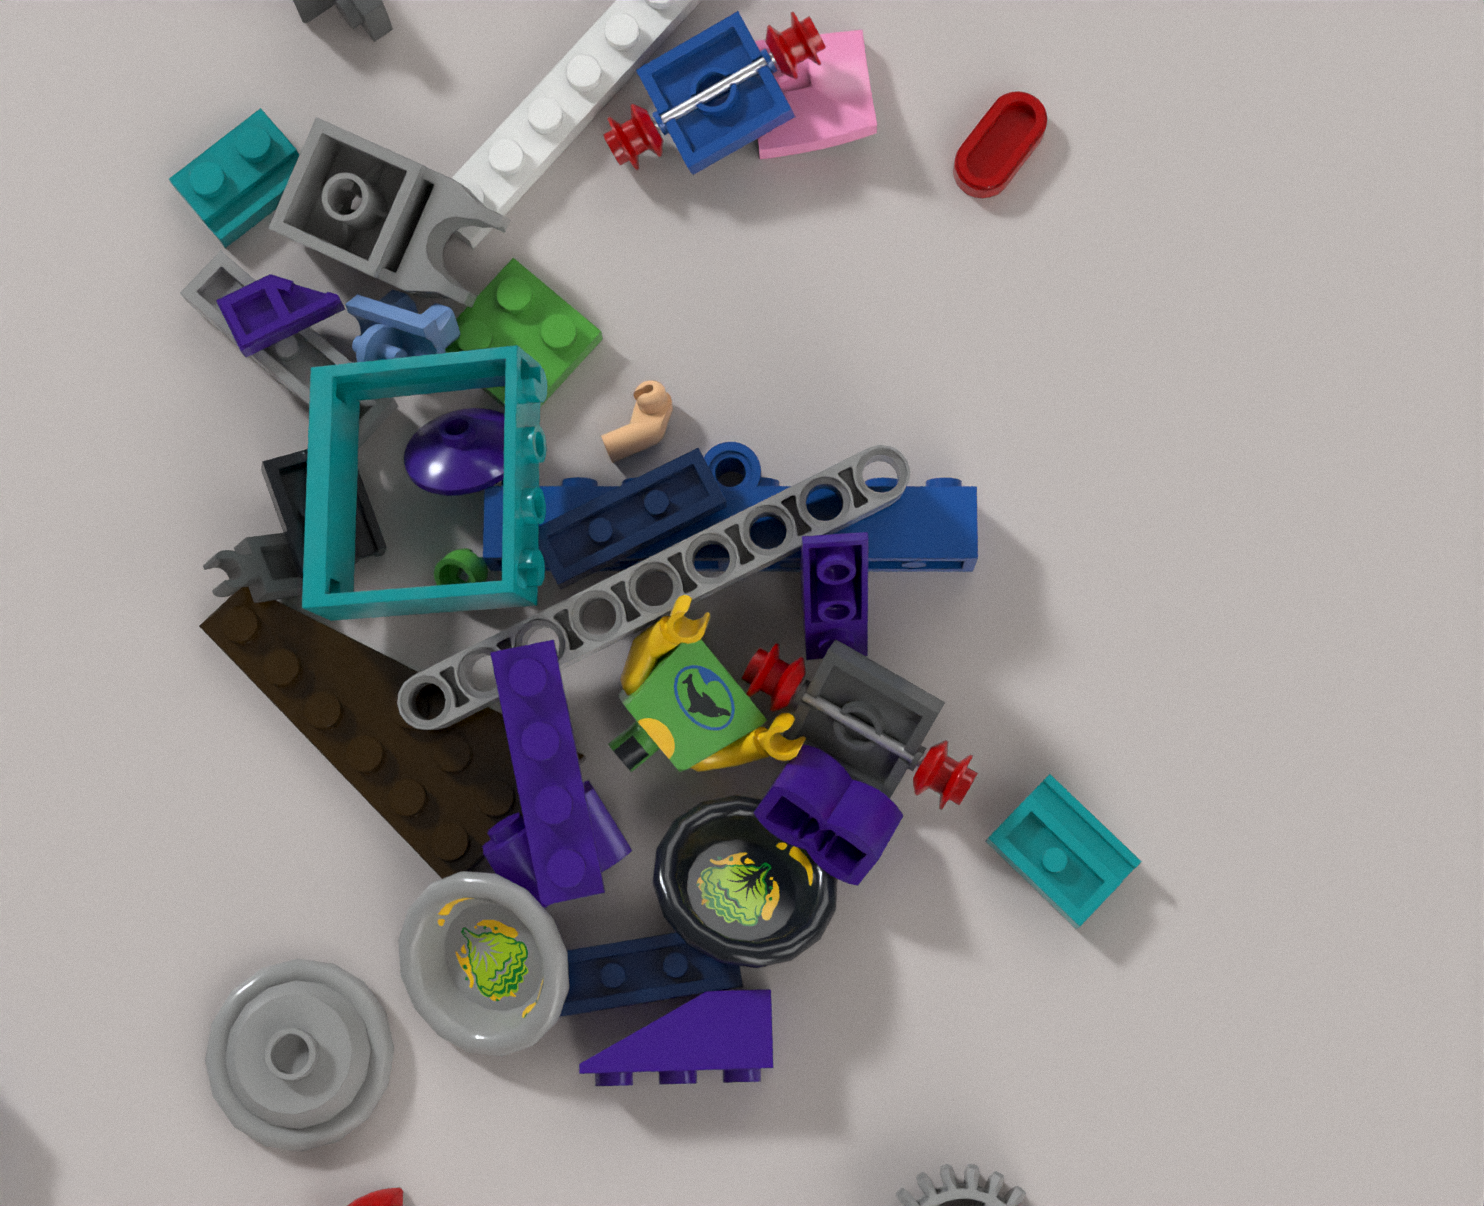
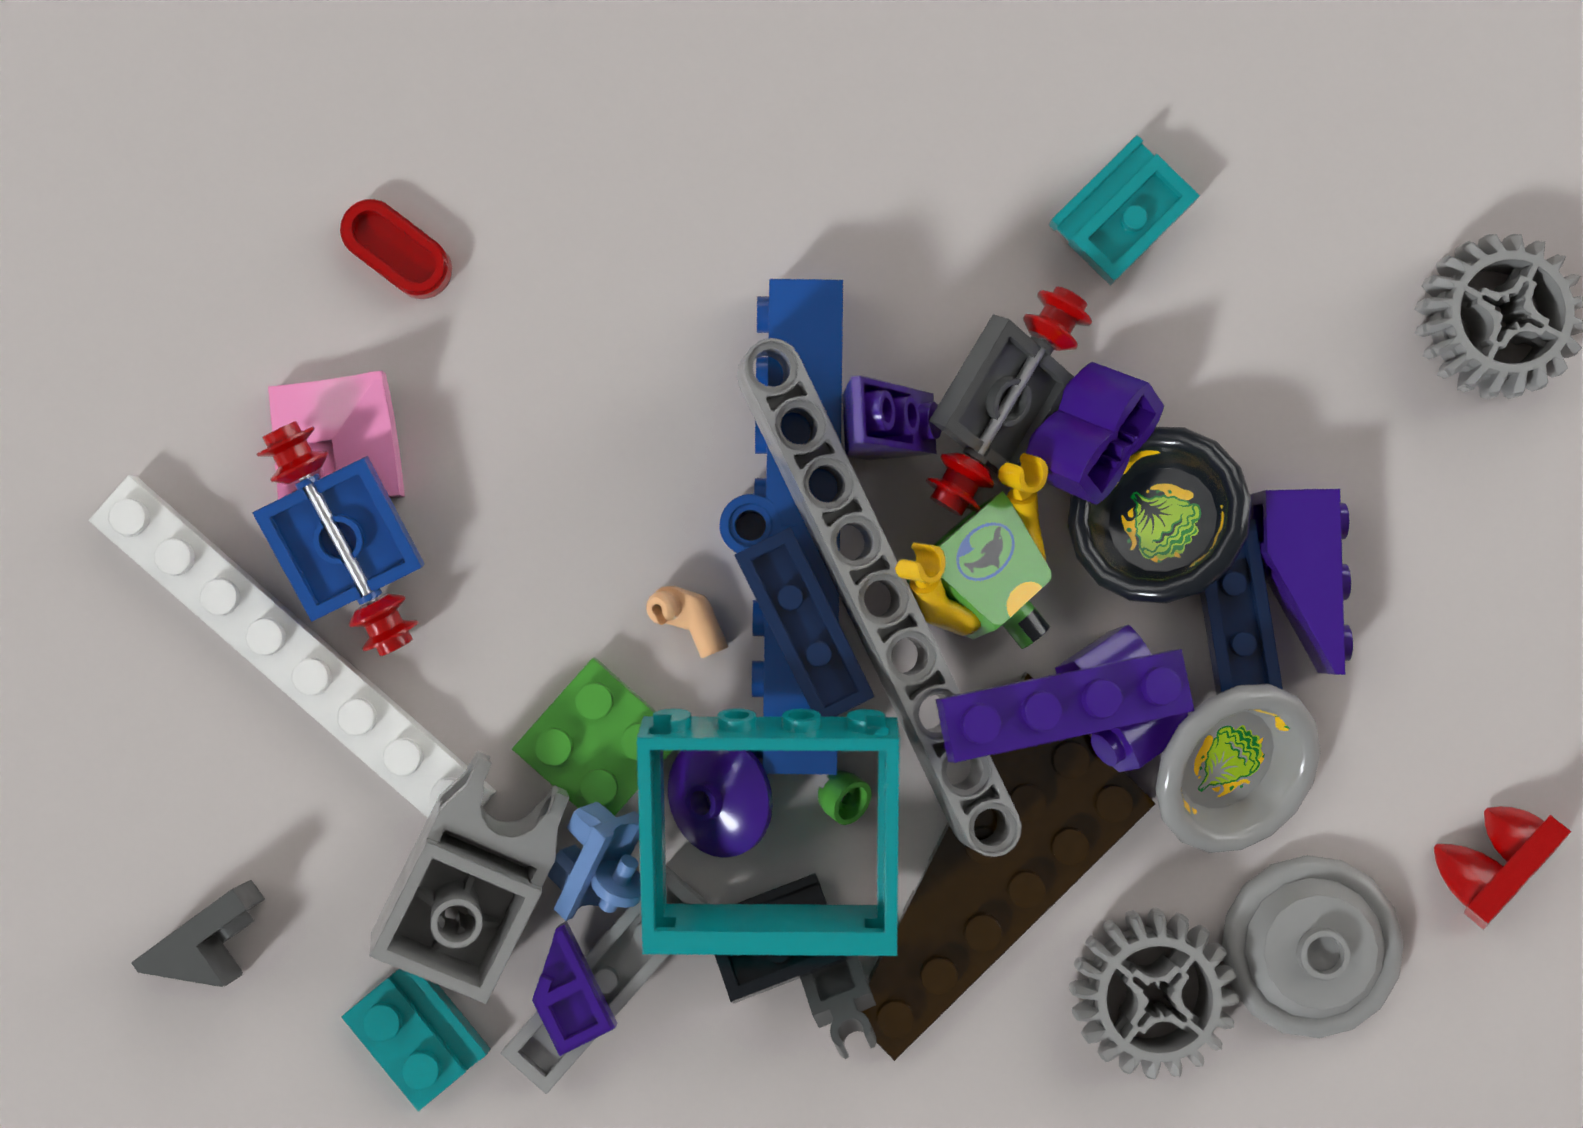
camera: 90 degrees left, 10 degrees up
(237, 904) = (1142, 1013): none -> light grey gear

